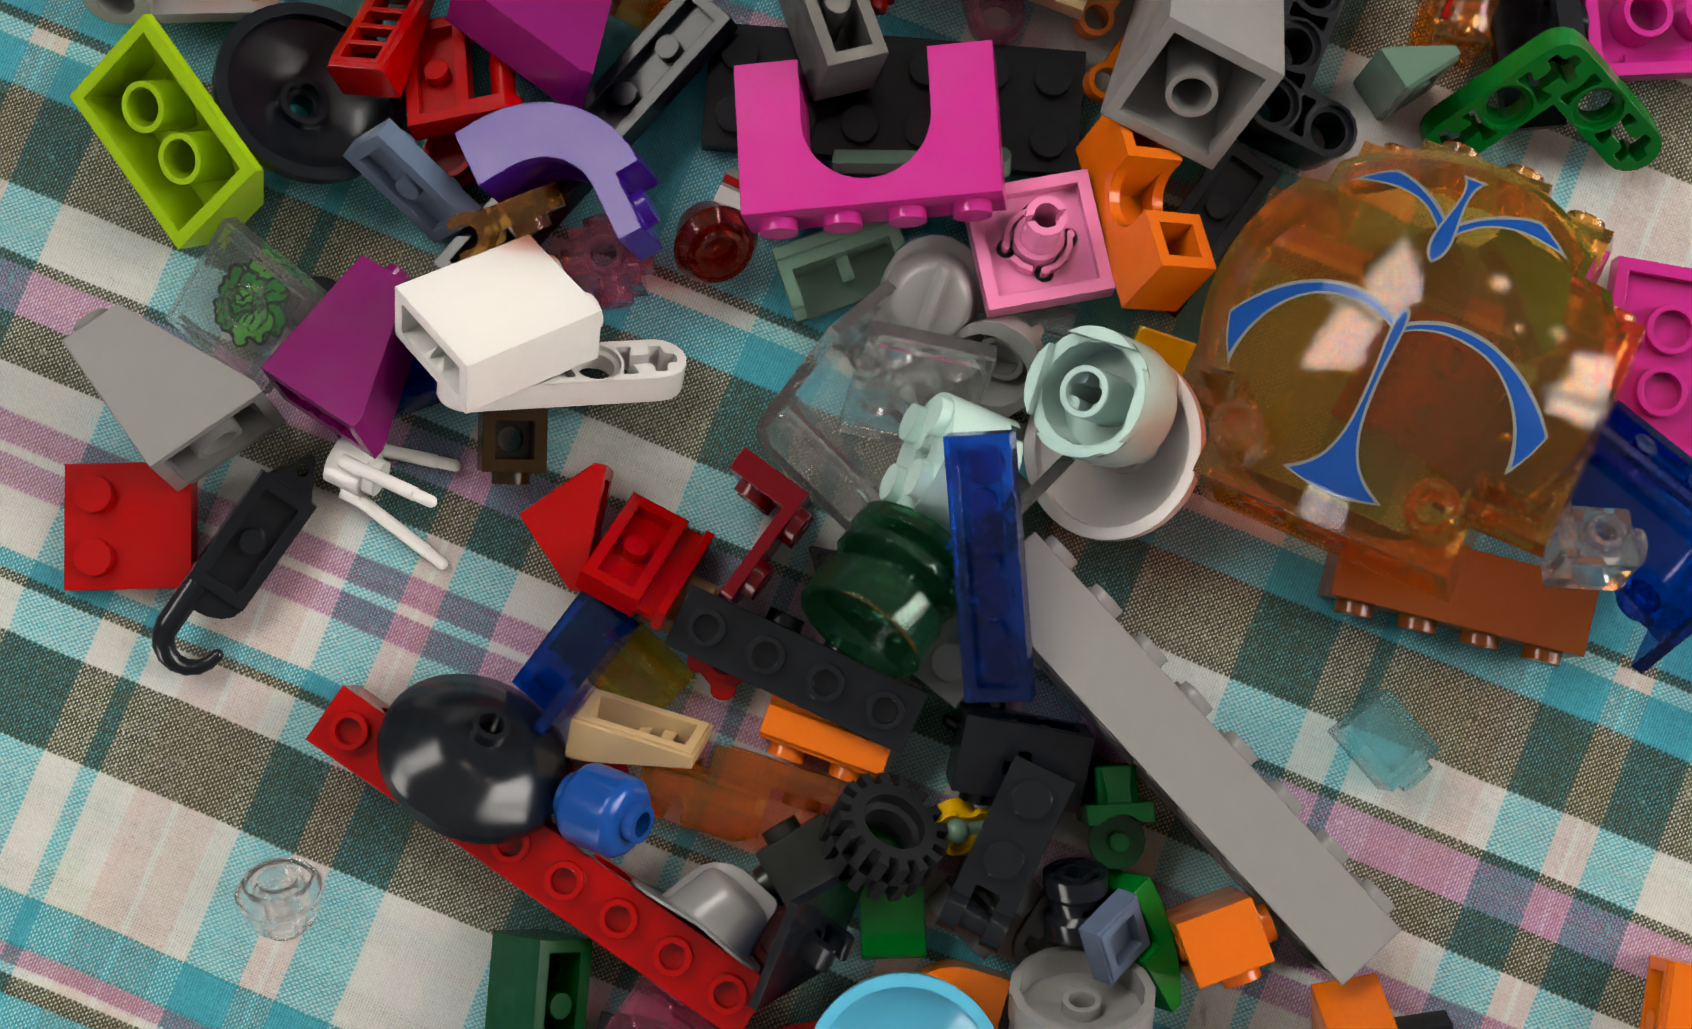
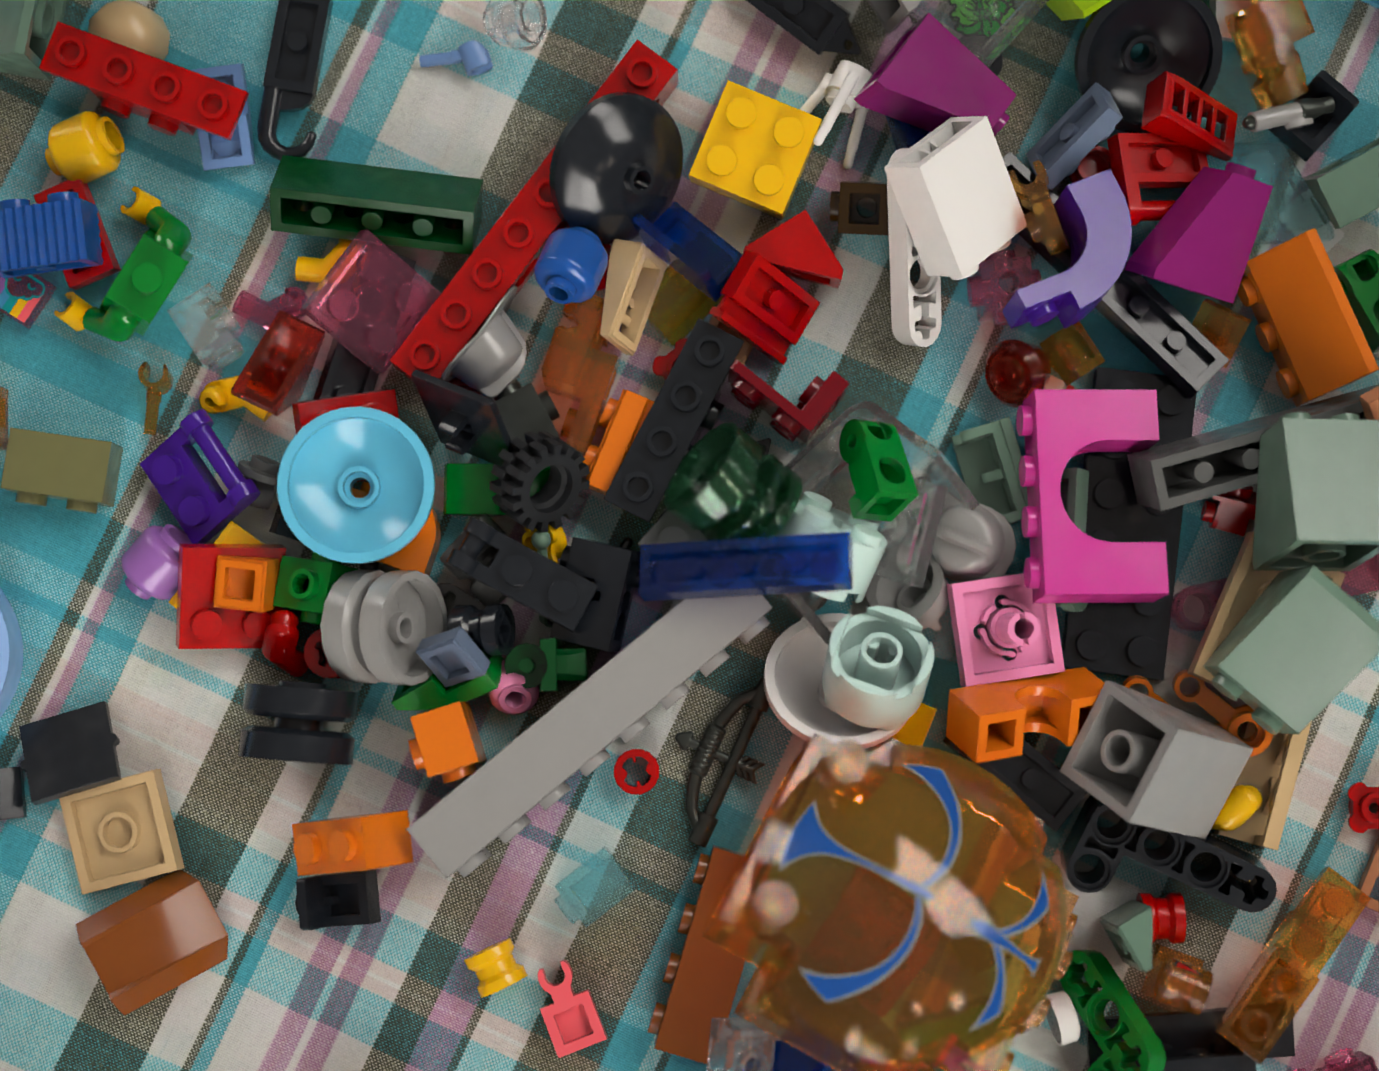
camera: 85 degrees right, 0 degrees up
(329, 951) = (471, 53): none -> medium blue hand
(442, 581) = (755, 150): none -> yellow brick
(687, 176) = (1072, 353): none -> clear orange plate
(850, 408) = (877, 470): none -> green leg
(1152, 859) = (511, 695): none -> bright pink piece
(1202, 608) = (707, 750): none -> pearl dark grey piece
(1231, 677) = (620, 773): none -> red bush
(1371, 33) = (1168, 916): none -> red wheel
(1492, 860) = (495, 967): none -> yellow wheel
(1517, 150) = (1063, 1019): none -> white tile
(1545, 761) = (571, 1017): none -> coral plate

